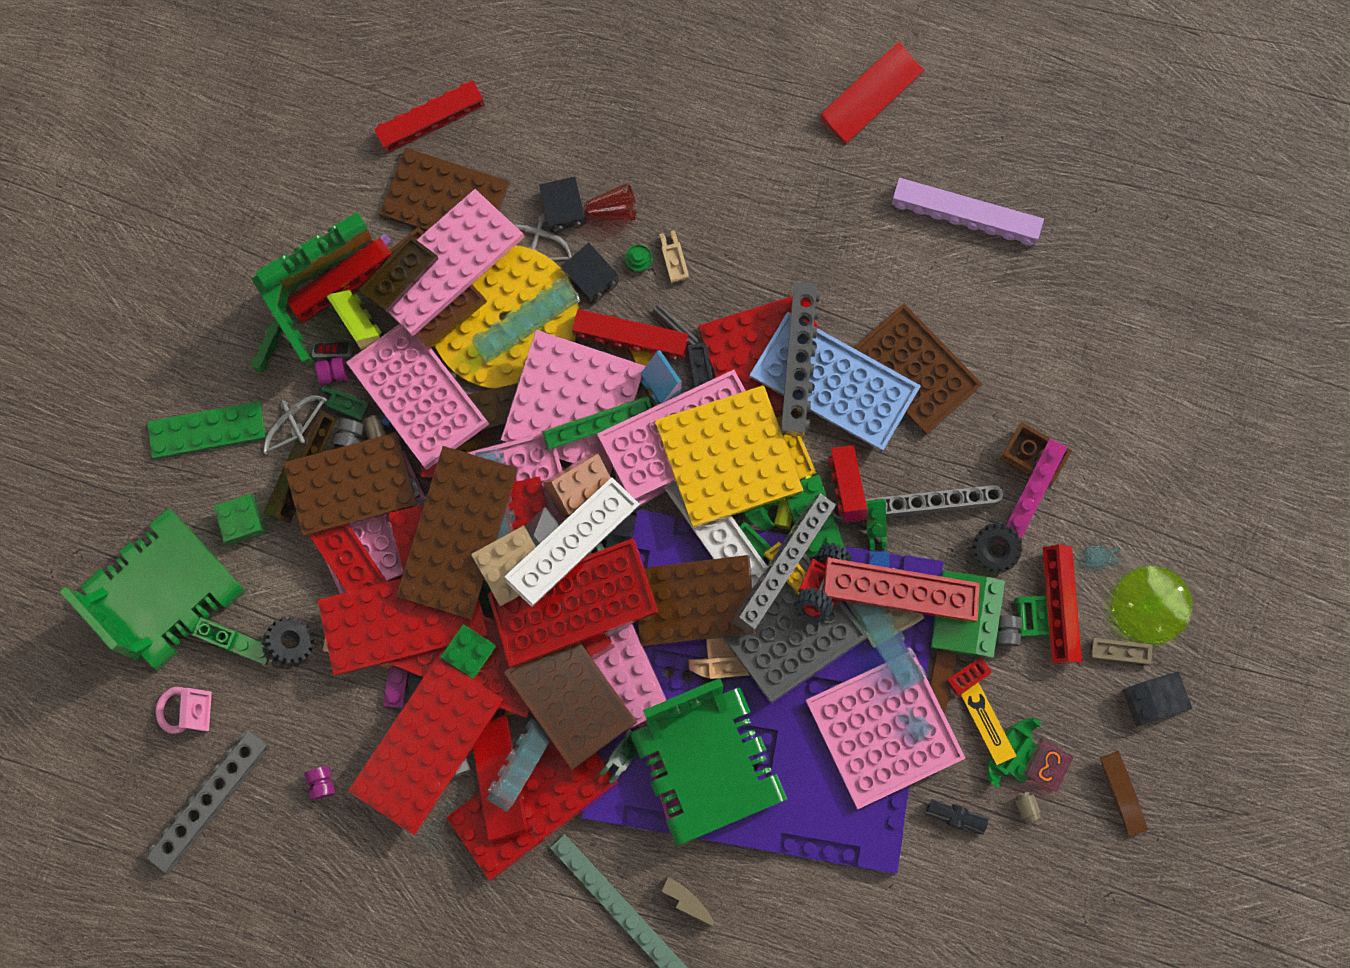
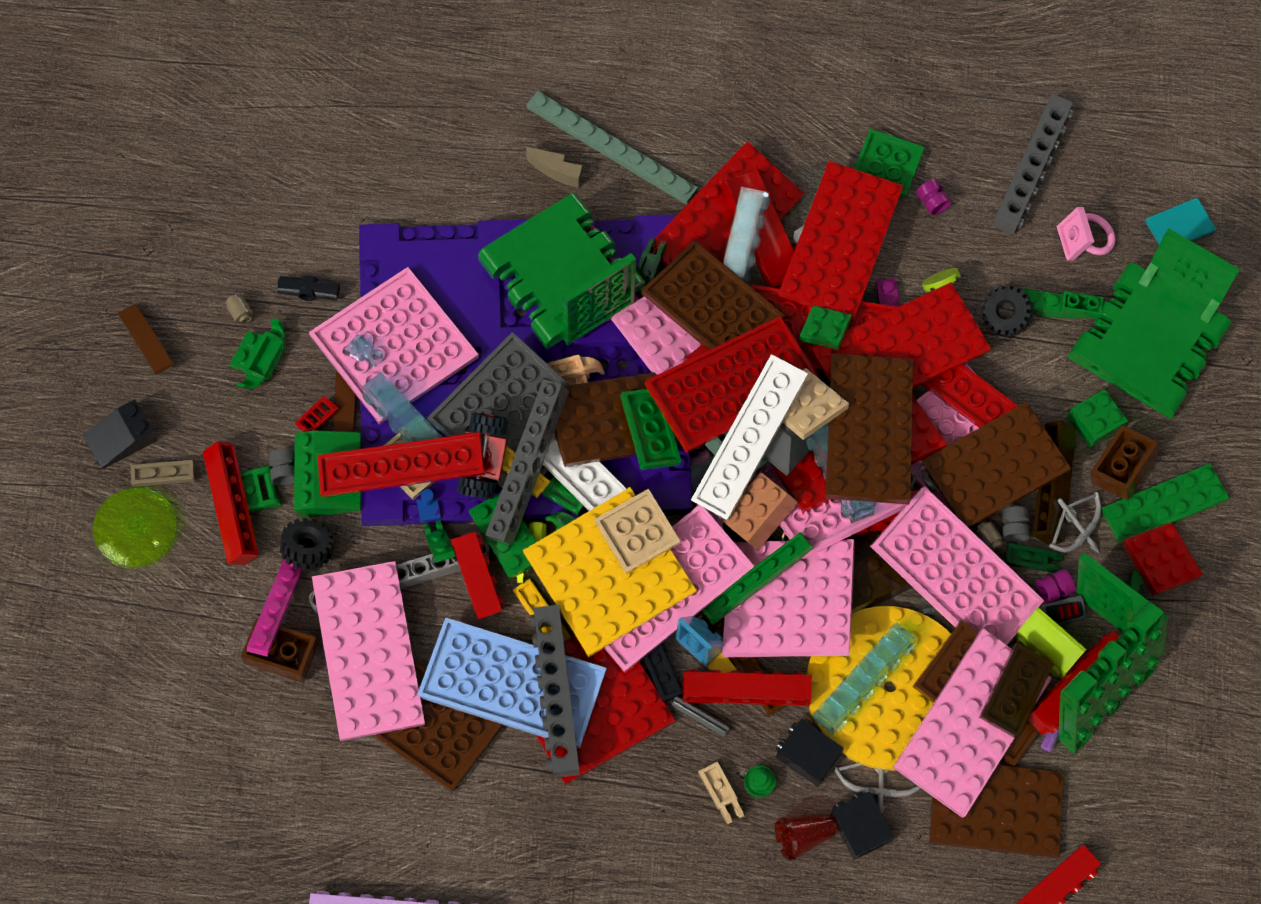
camera: 160 degrees right, 10 degrees down
(88, 705) = (1185, 219): none -> teal tile
(228, 376) = (1162, 559): none -> red plate
(230, 468) = (1124, 462): none -> reddish brown brick
(340, 689) = (941, 279): none -> lime tile
(353, 834) = (890, 159): none -> green plate
(662, 569) = (649, 431): none -> green plate
(697, 477) = (637, 531): none -> tan plate
(957, 437) = (368, 651): none -> bright pink plate
(988, 724) = (290, 375): yellow sticker -> none
(1048, 765) = (224, 350): clear pink tile -> none
(1098, 556) = (197, 564): clear light blue plate -> none

